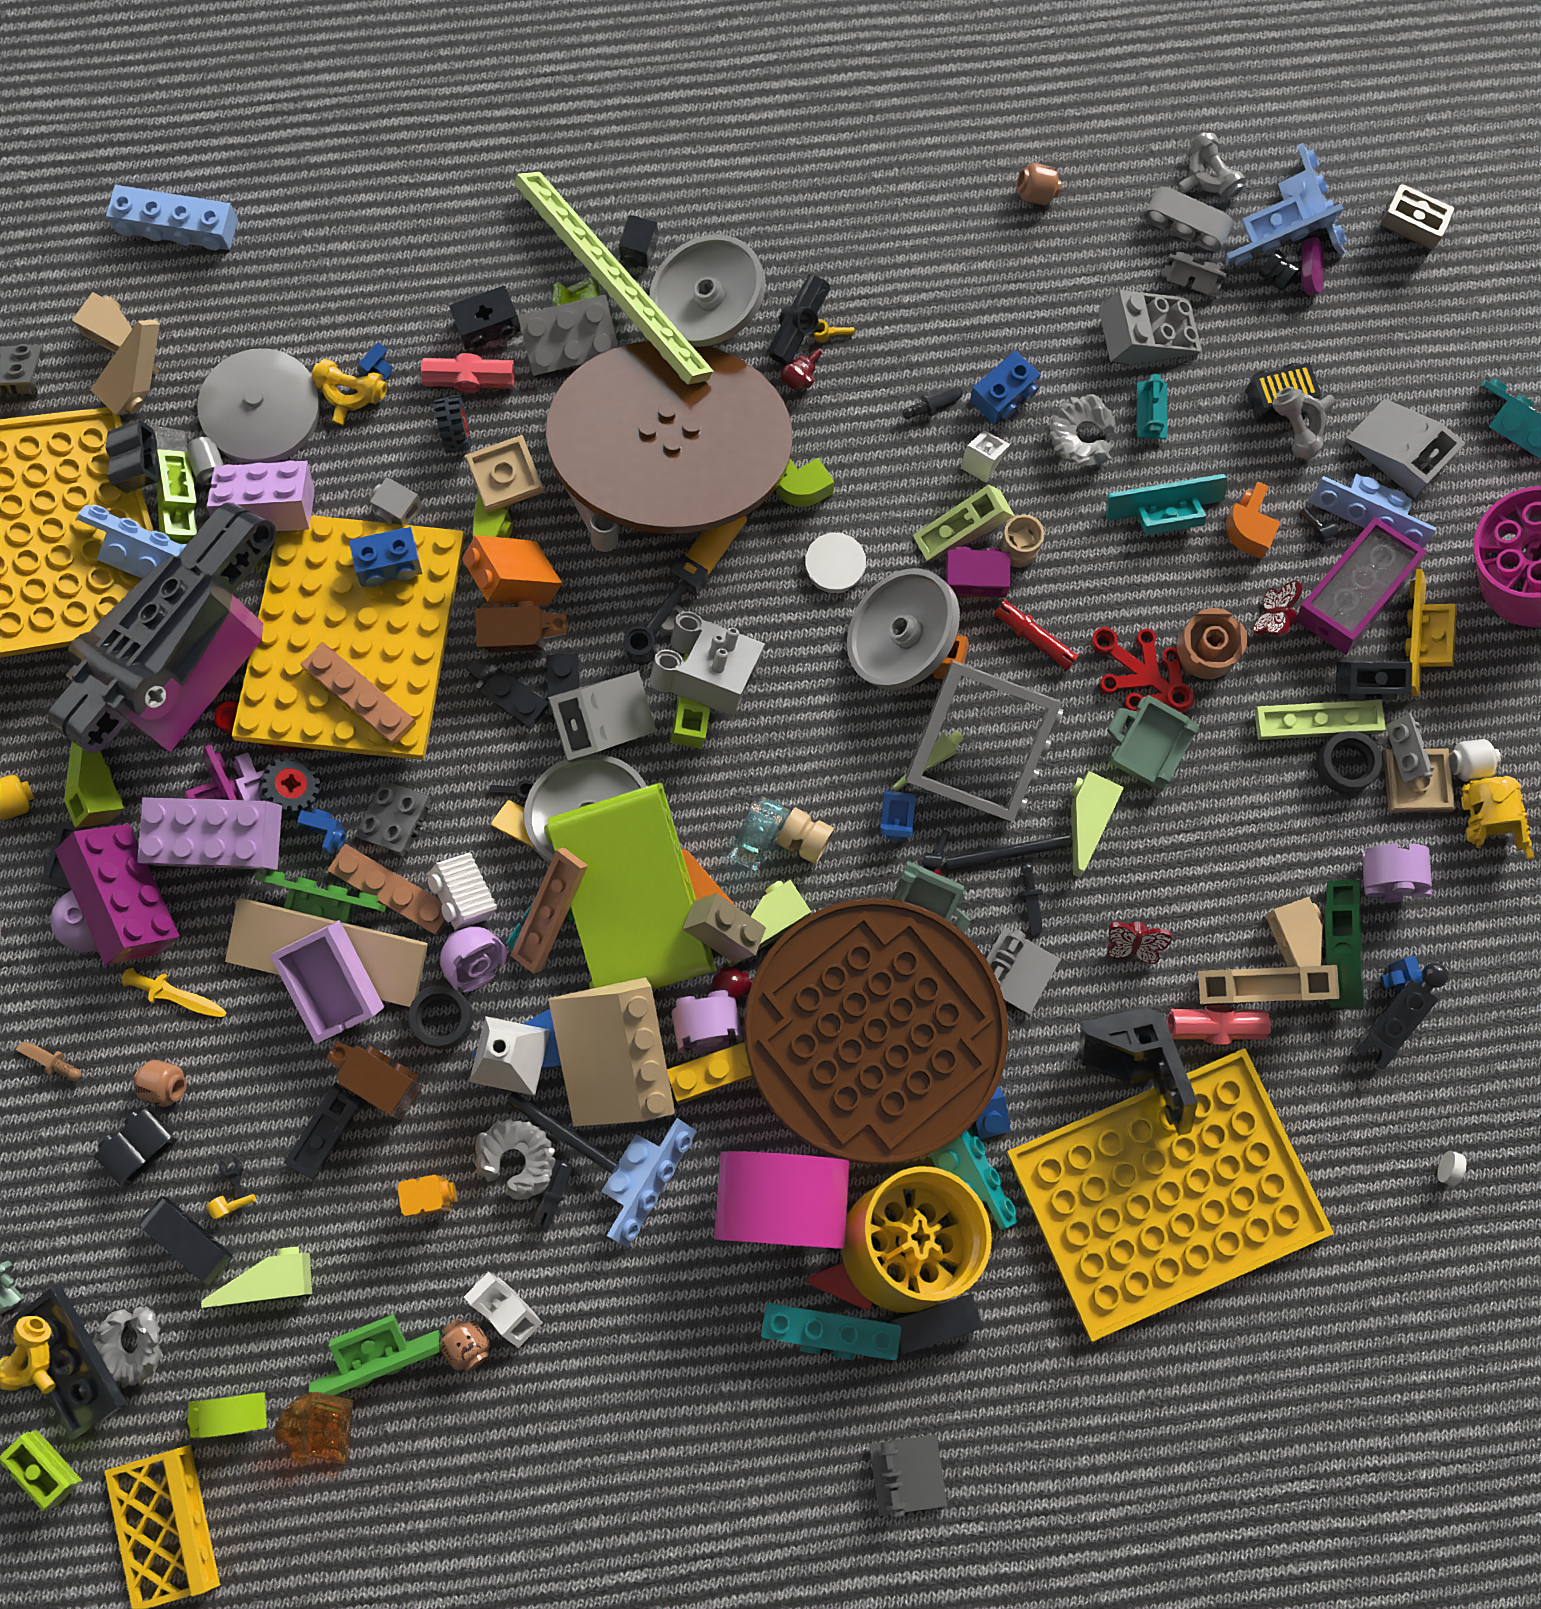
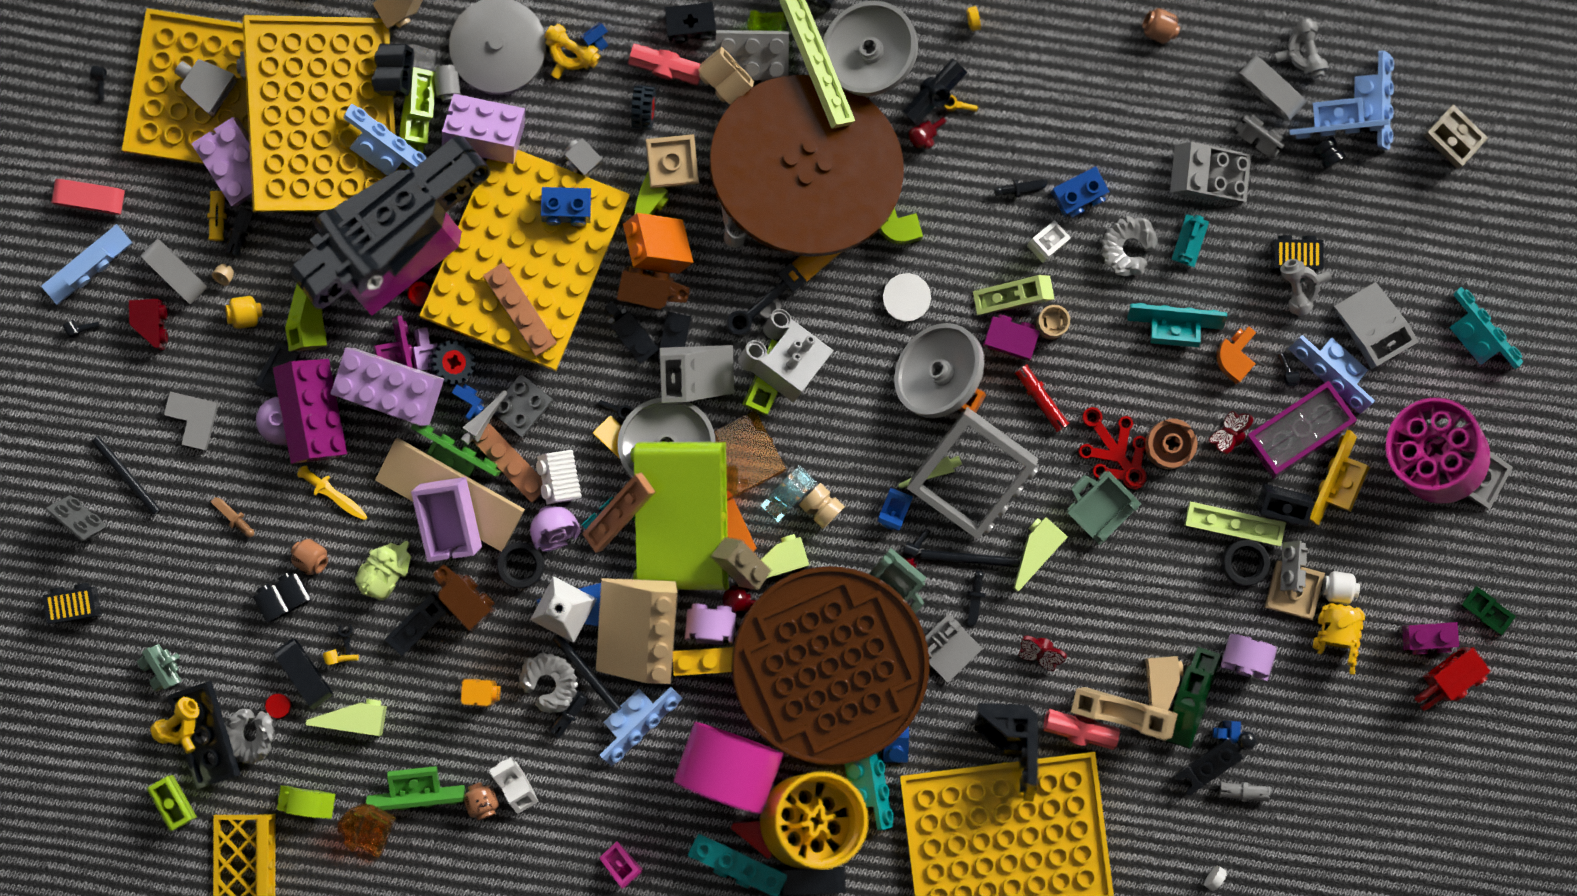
camera: 15 degrees right, 10 degrees up
(162, 1293) = (278, 705): none -> red tile
(260, 1071) = (383, 569): none -> yellowish green helmet
(340, 855) = (476, 427): none -> light grey piece
(542, 361) = (725, 76): none -> tan brick
(674, 1377) = (620, 864): none -> dark pink slope
(697, 798) = (749, 454): none -> clear orange piece
(819, 231) = (973, 18): none -> yellow tile
(1312, 266) = (1357, 156): magenta tile -> none
(1448, 1046) = (1244, 791): none -> light grey pin

